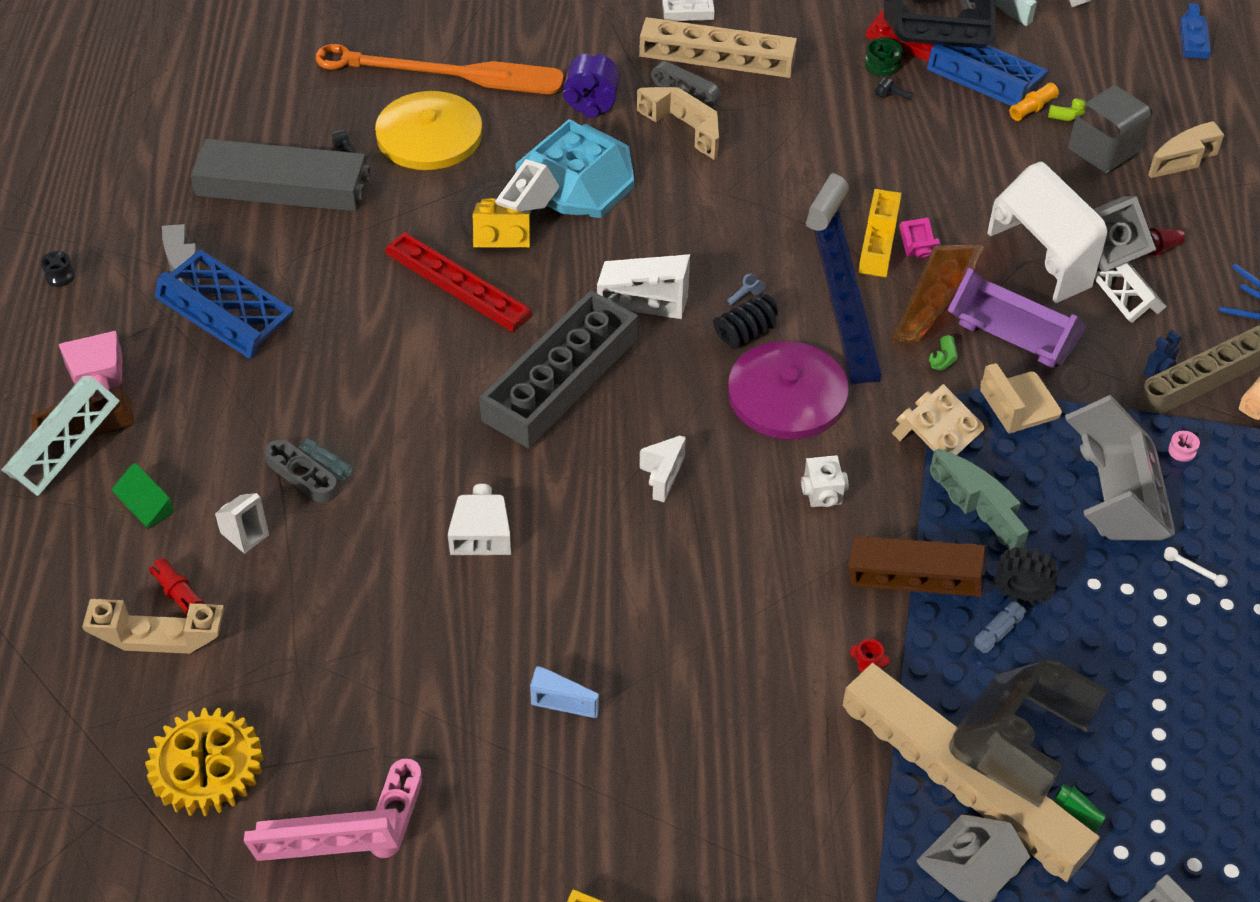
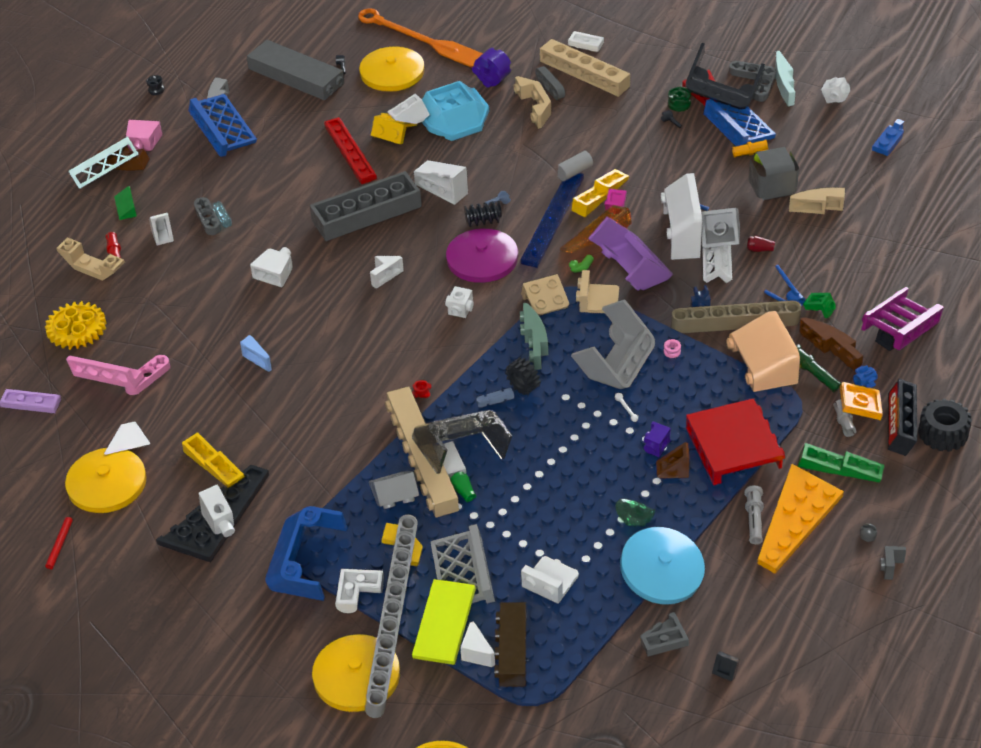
camera: 30 degrees right, 5 degrees down
(917, 566) = (473, 355): reddish brown brick -> none

